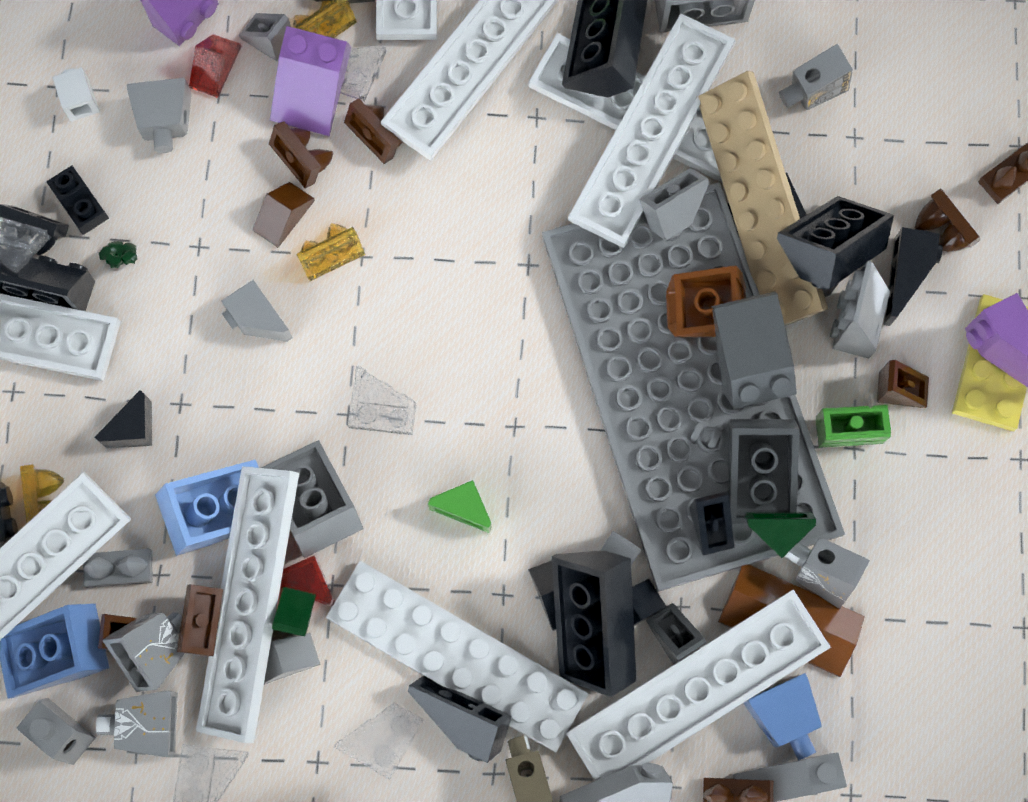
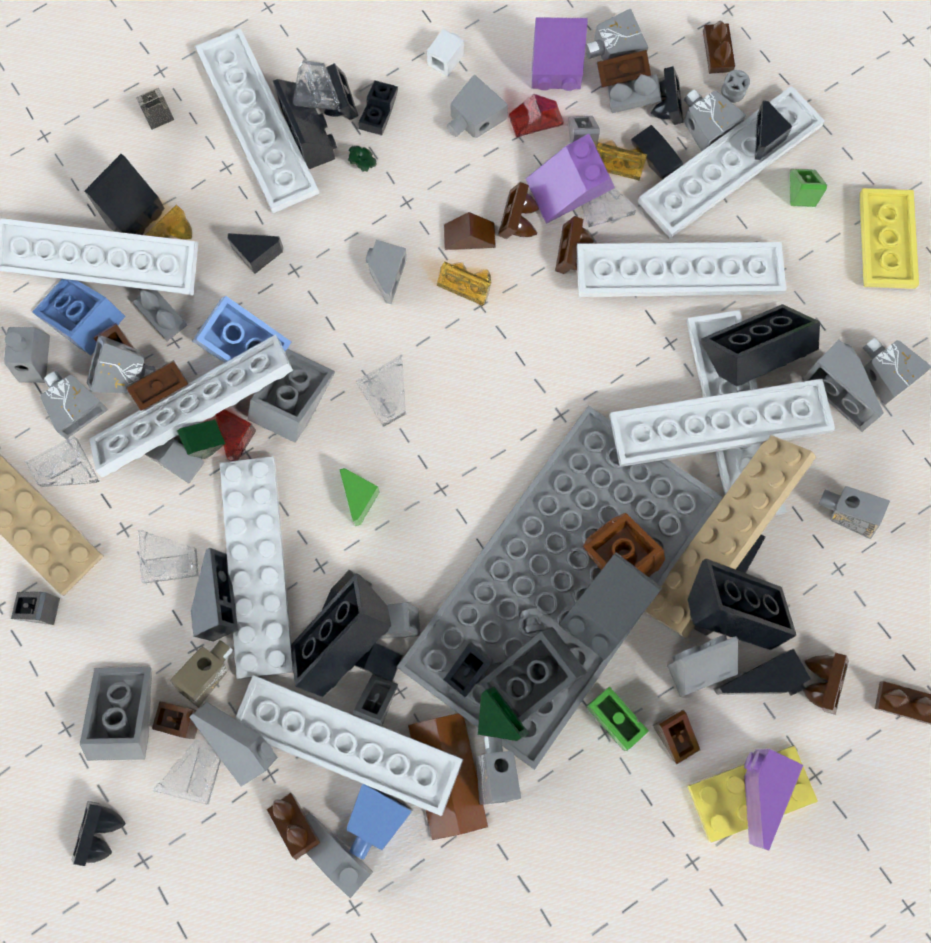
camera: 55 degrees right, 0 degrees up
(675, 203) = (677, 476): light grey slope -> none

